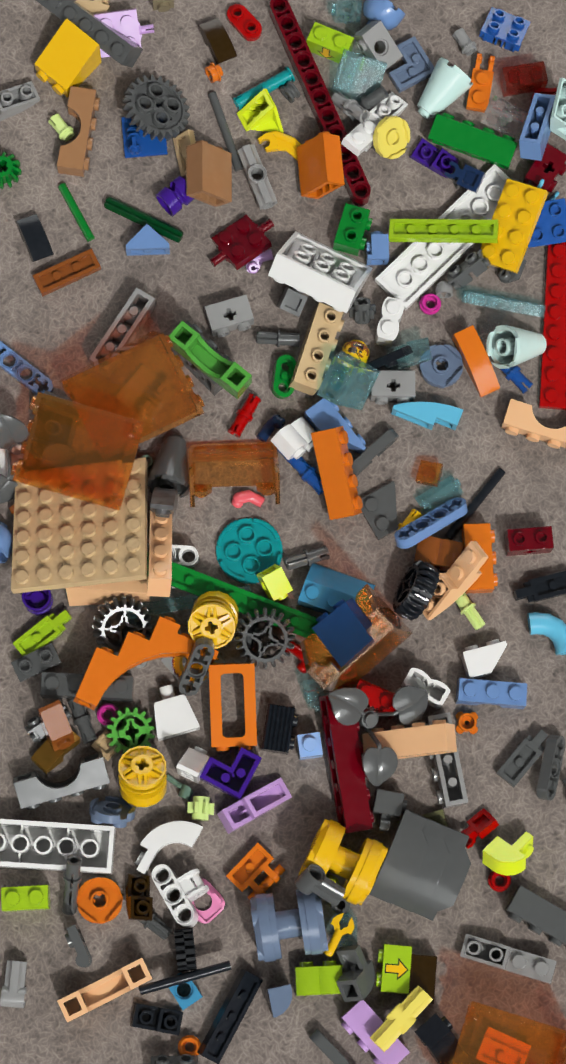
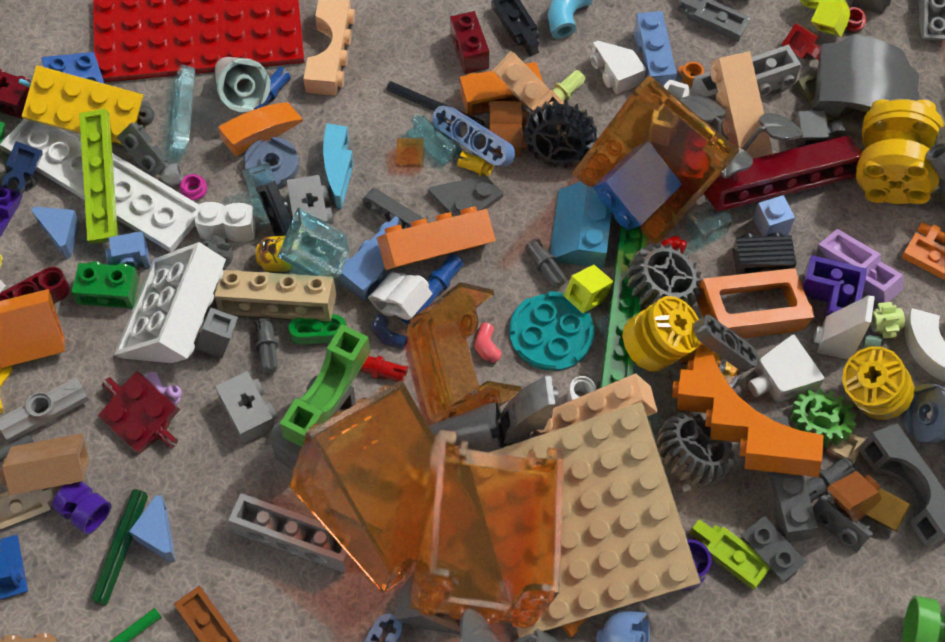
camera: 95 degrees left, 15 degrees down
(407, 201) = (60, 226): none -> medium blue slope

